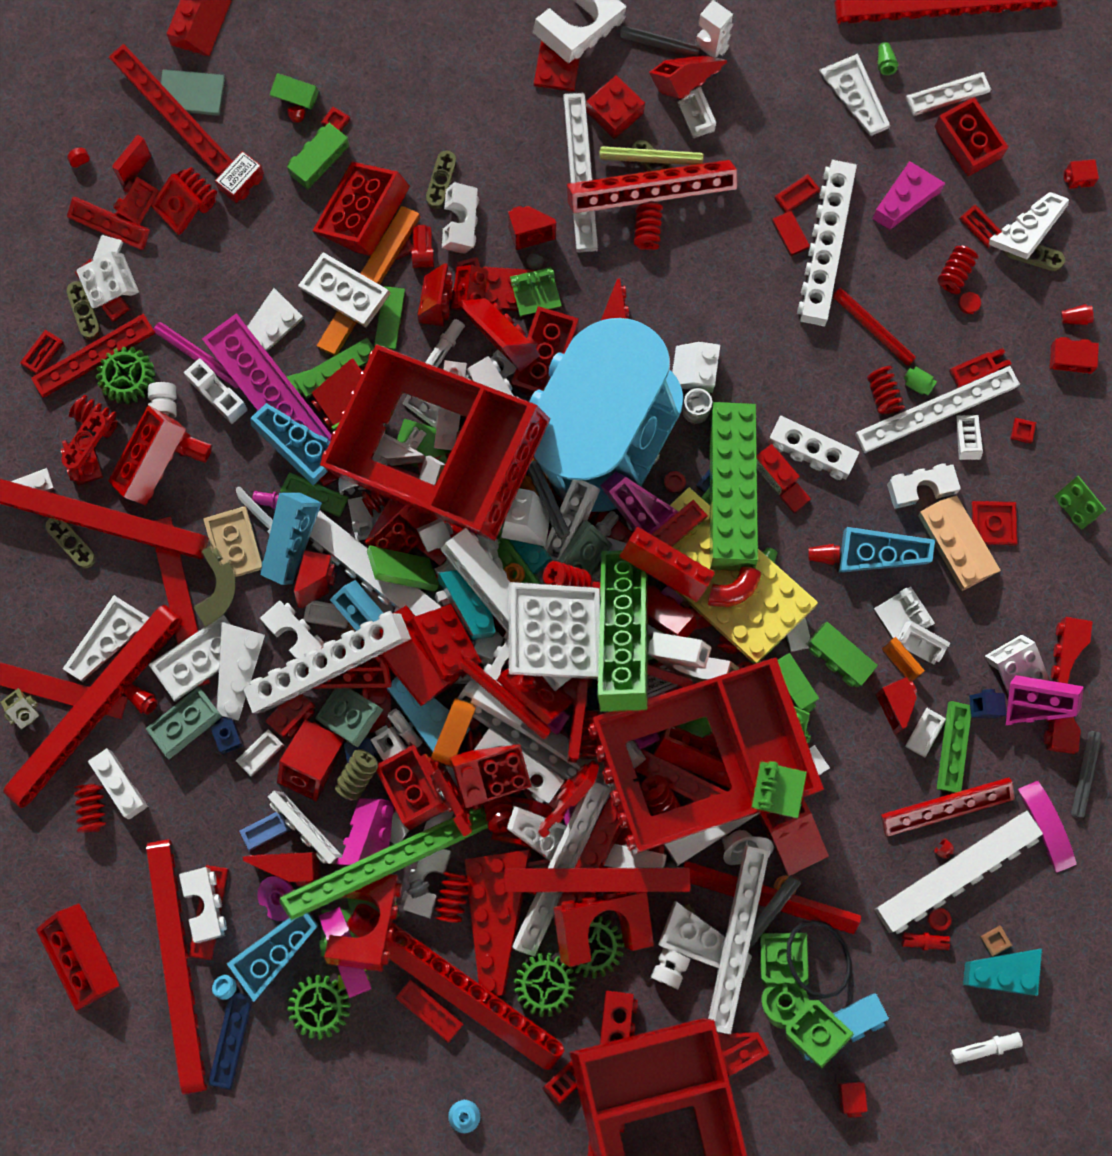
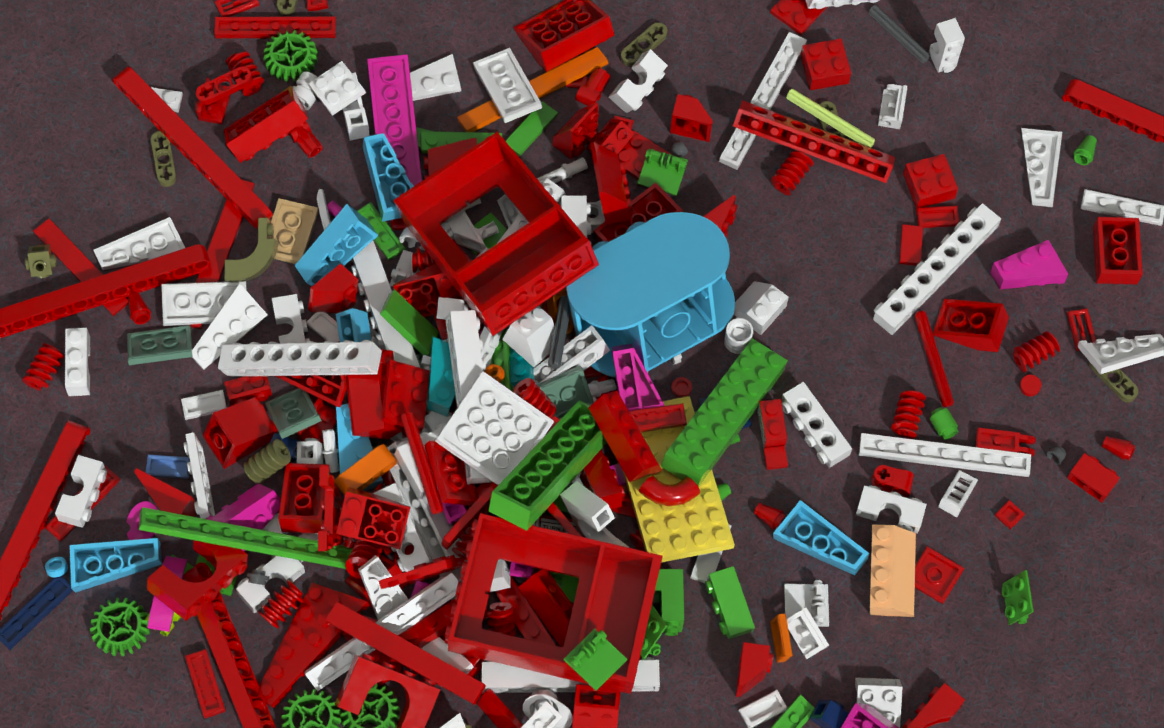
camera: 30 degrees right, 10 degrees down
(192, 383) = (337, 88): none -> white plate
(193, 351) = (355, 66): dark pink axle -> none
(226, 735) = (186, 375): dark blue brick -> none
(682, 75) = (894, 67): red slope -> none
(773, 164) = (930, 181): none -> red brick
(887, 276) = (972, 324): none -> red slope
(911, 459) = (894, 480): none -> red piece
(1030, 349) = (1059, 452): none -> dark grey hinge

